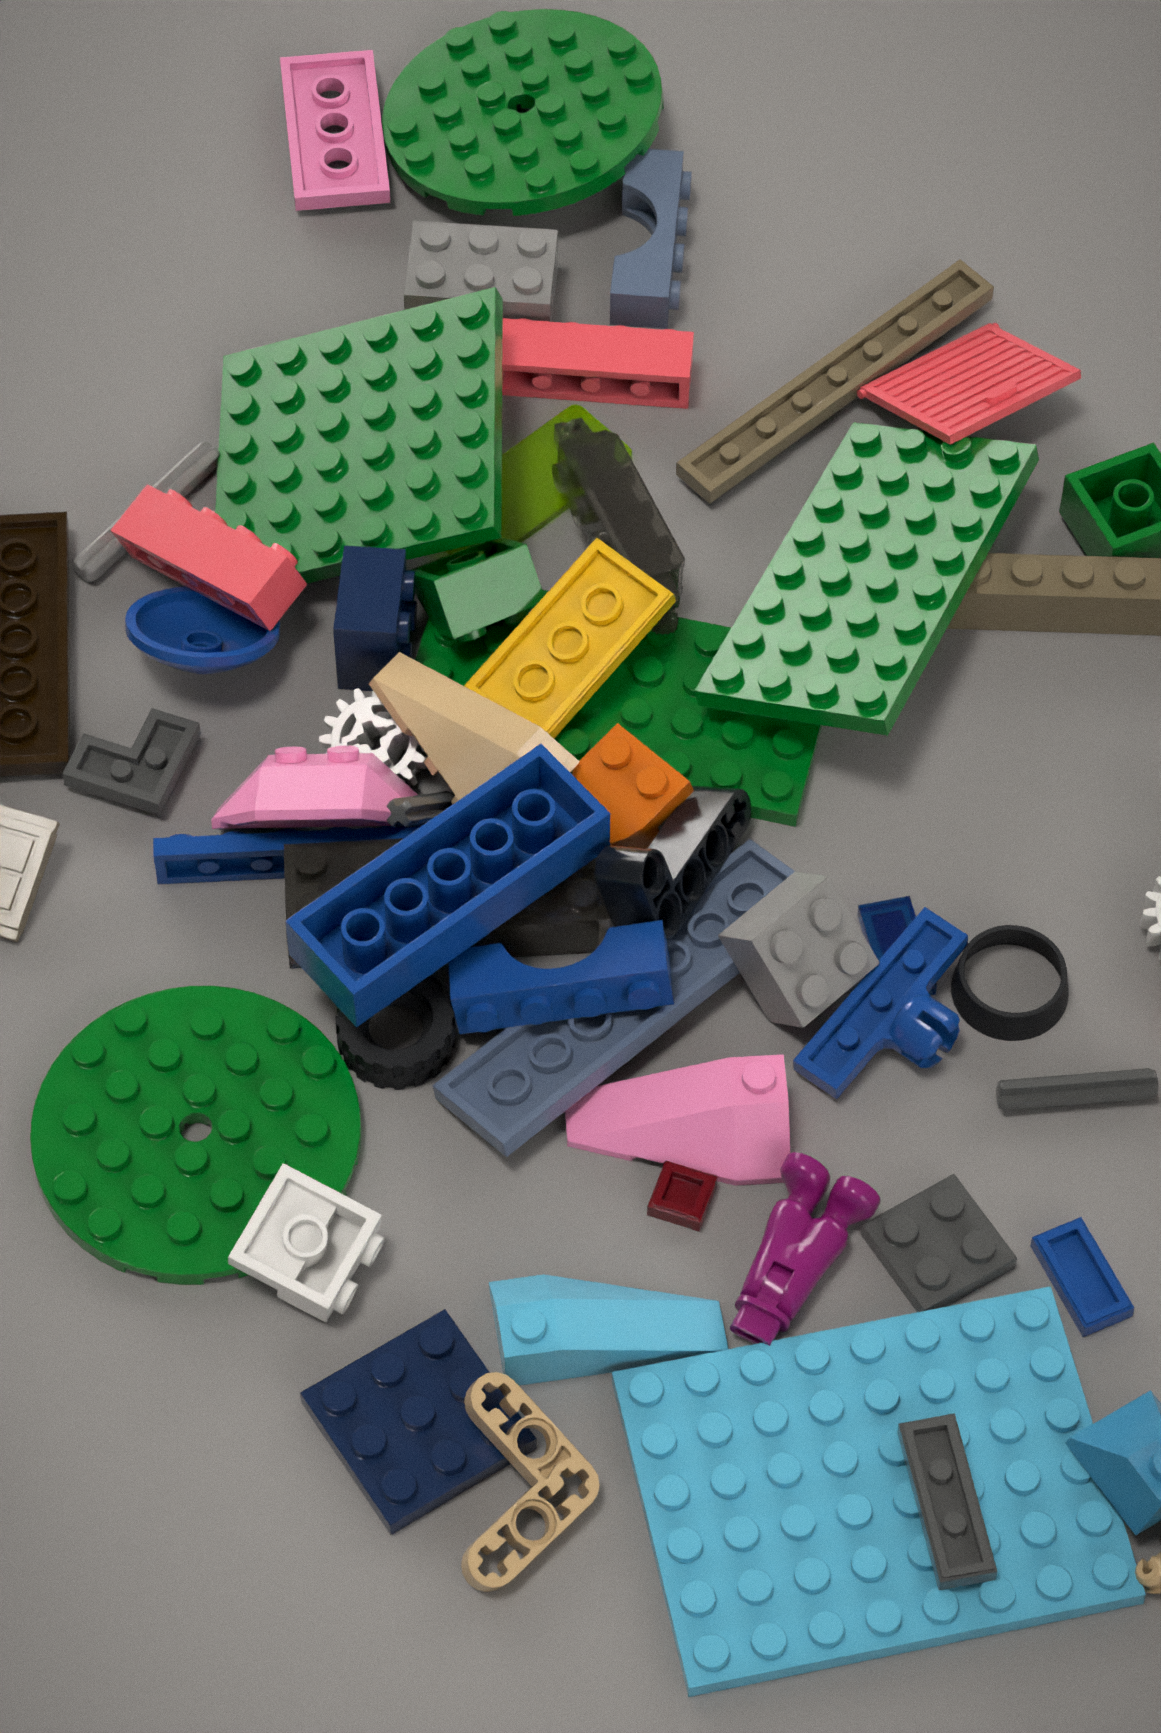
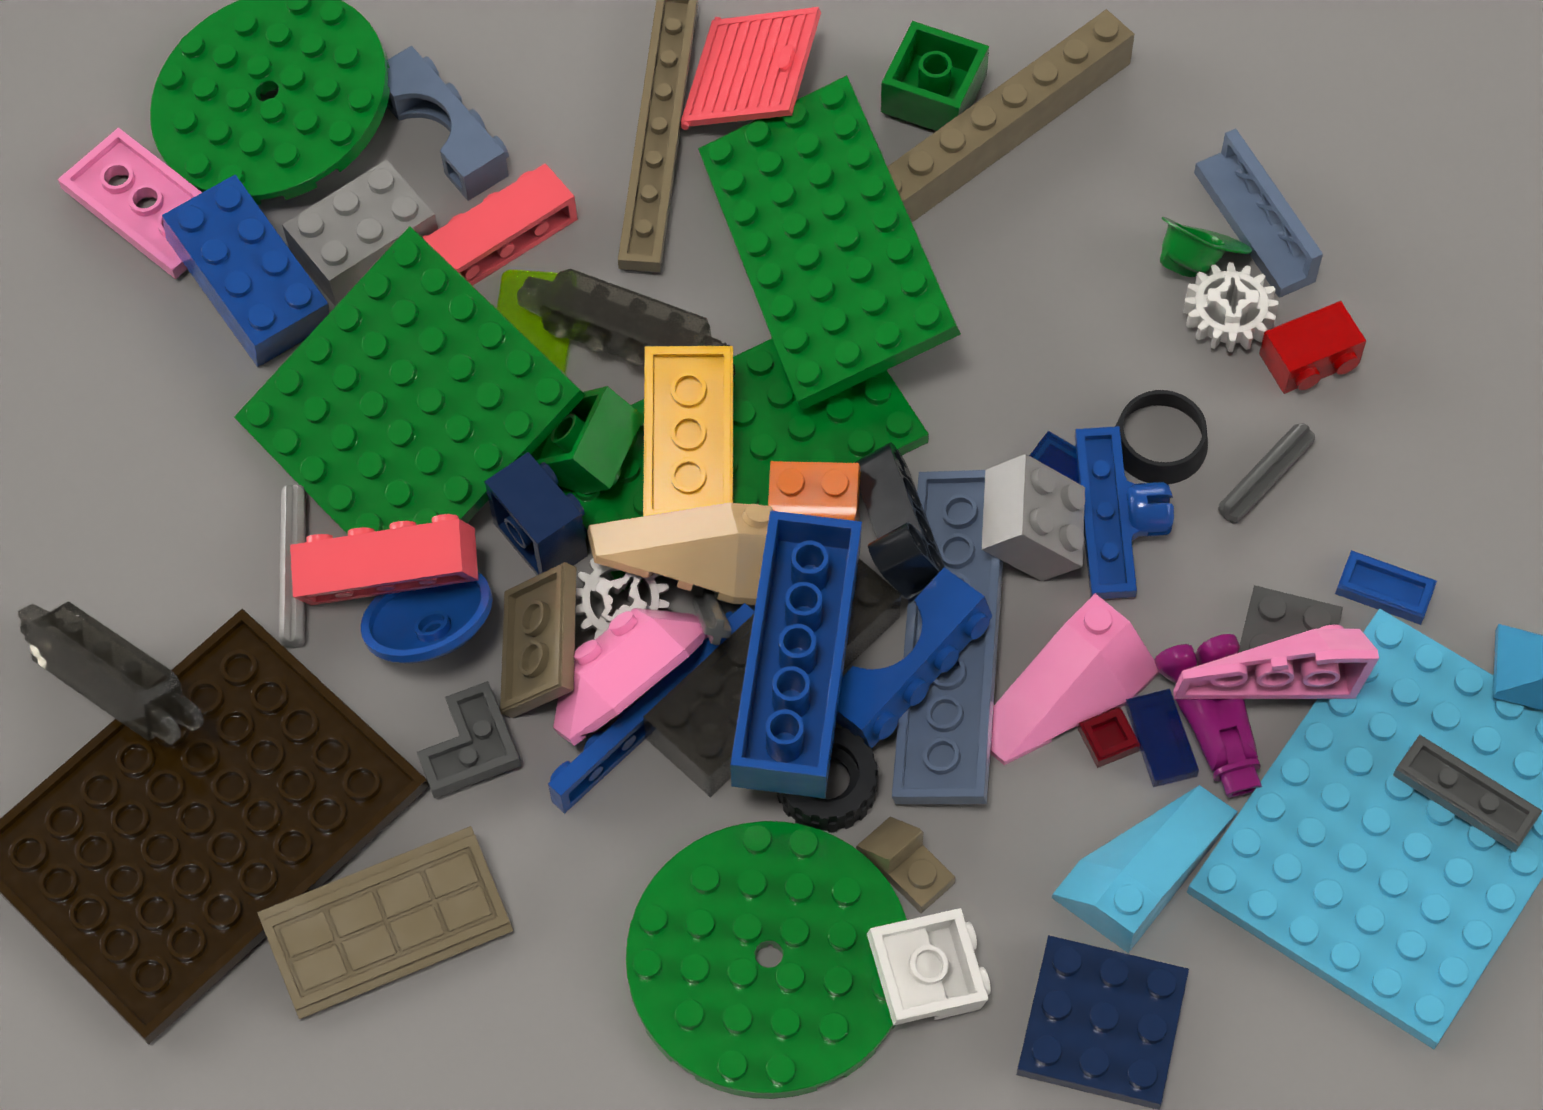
camera: 40 degrees left, 5 degrees up
(270, 720) = (538, 640): none -> dark tan tile
(347, 234) = (245, 269): none -> blue brick
(391, 1155) = (906, 863): none -> dark tan slope
(540, 1473) = (1223, 990): tan beam -> none
(727, 1234) = (1161, 738): none -> clear blue tile
(897, 1260) = (1304, 666): none -> bright pink wedge

